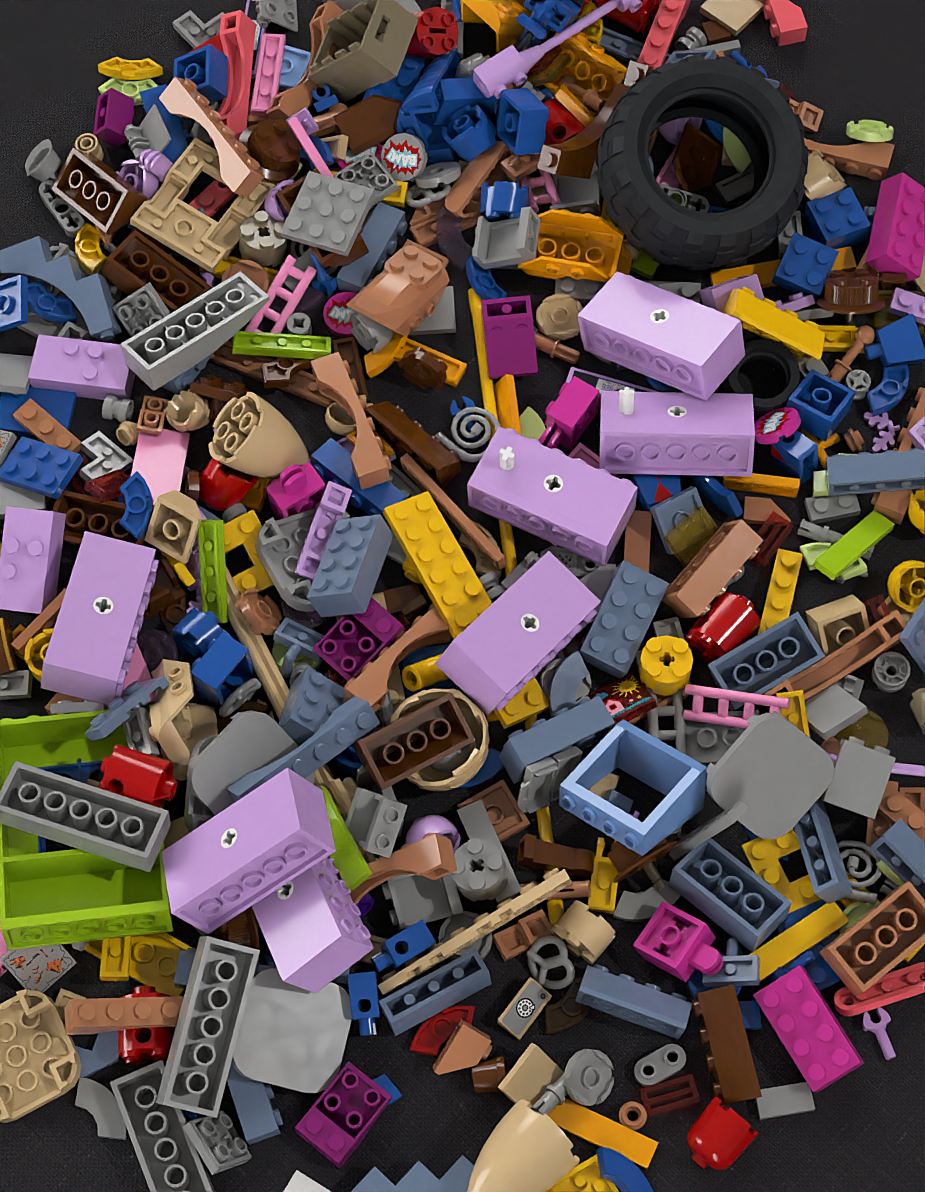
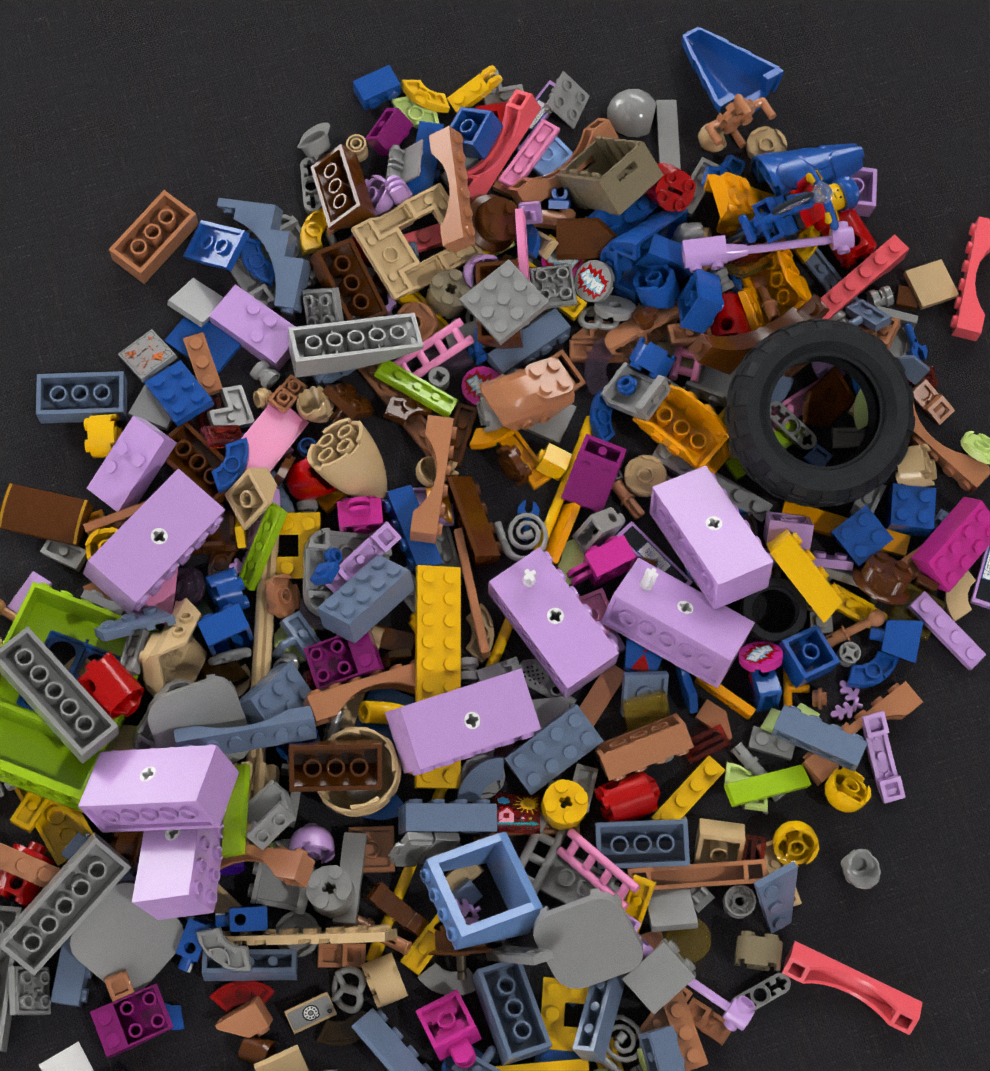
camera: 20 degrees right, 5 degrees up
(76, 83) = (377, 87): none -> blue brick
(178, 38) = (475, 89): none -> yellow hinge
(198, 453) = (303, 444): none -> blue plate
(295, 557) = (326, 572): none -> blue plate
(310, 1084) = (119, 985): none -> nougat tile
(402, 988) = (223, 951): none -> light grey tile
(461, 347) = (553, 461): none -> yellow brick
(474, 166) = (645, 317): none -> reddish brown tile
(494, 237) = (628, 389): none -> blue plate
(544, 379) = (606, 521): none -> light grey torso

